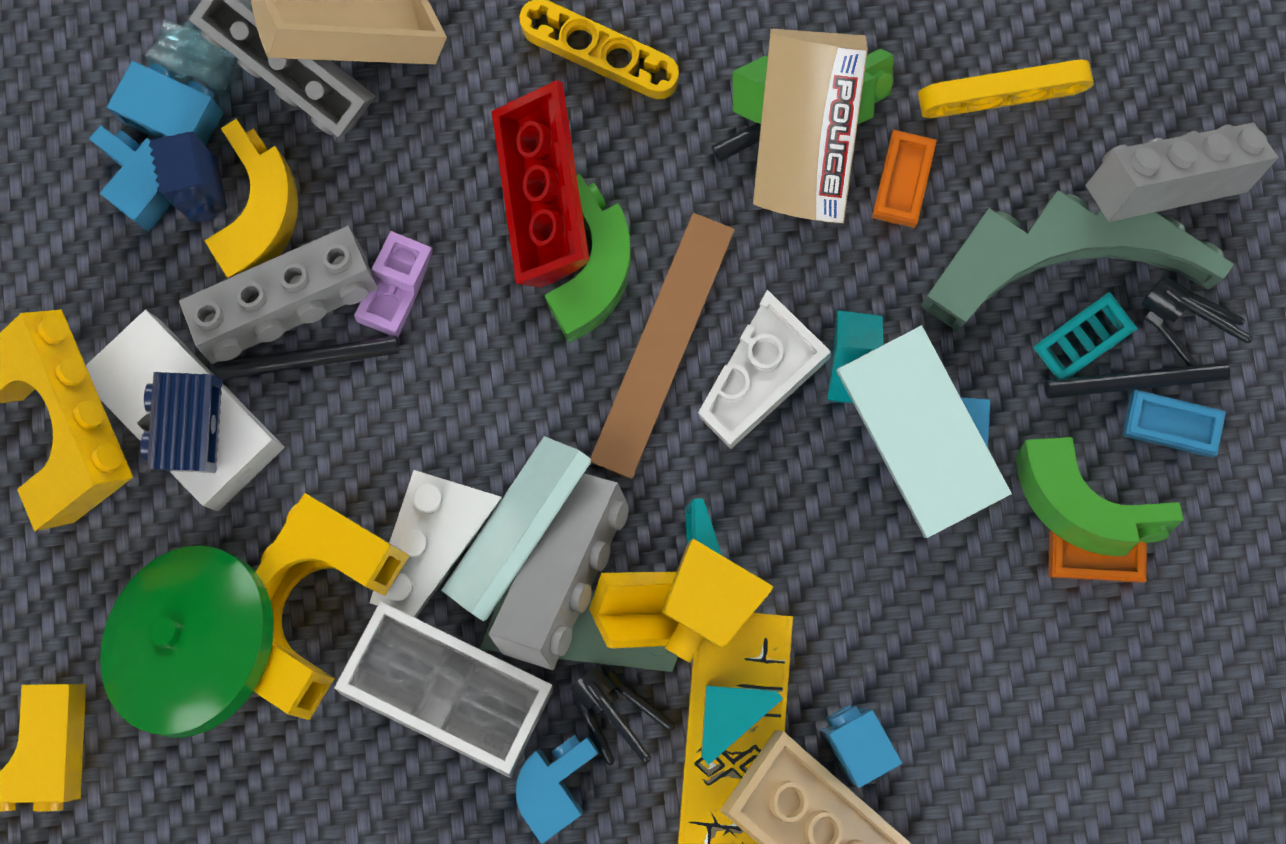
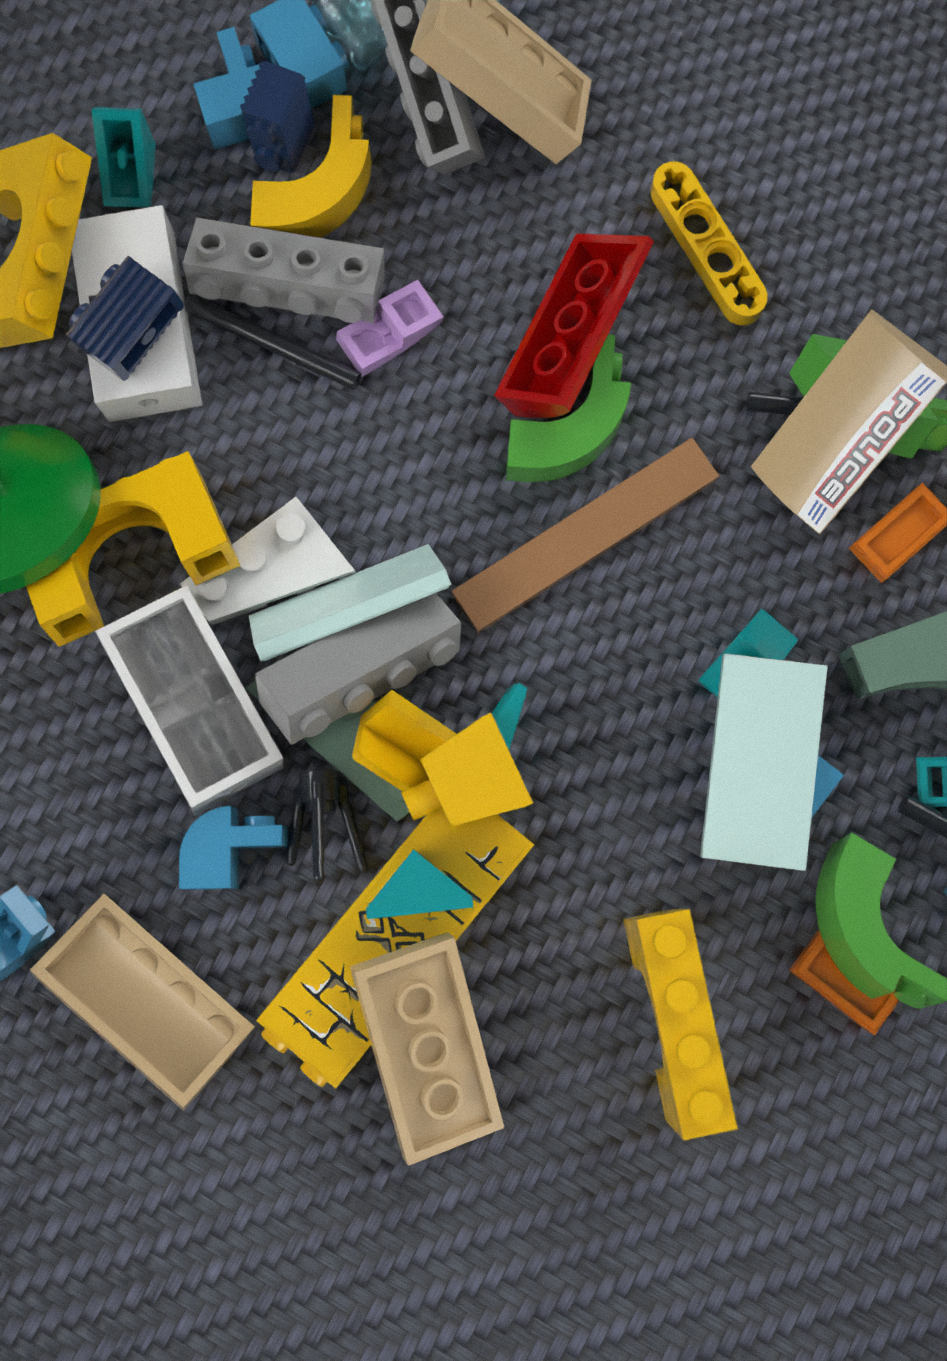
camera: 30 degrees right, 0 degrees up
(82, 289) = (124, 156): none -> teal slope
(766, 368) = (665, 615): white wing -> none
(859, 745) = (515, 997): dark azure brick -> none
(1034, 707) = (693, 1071): none -> yellow arch

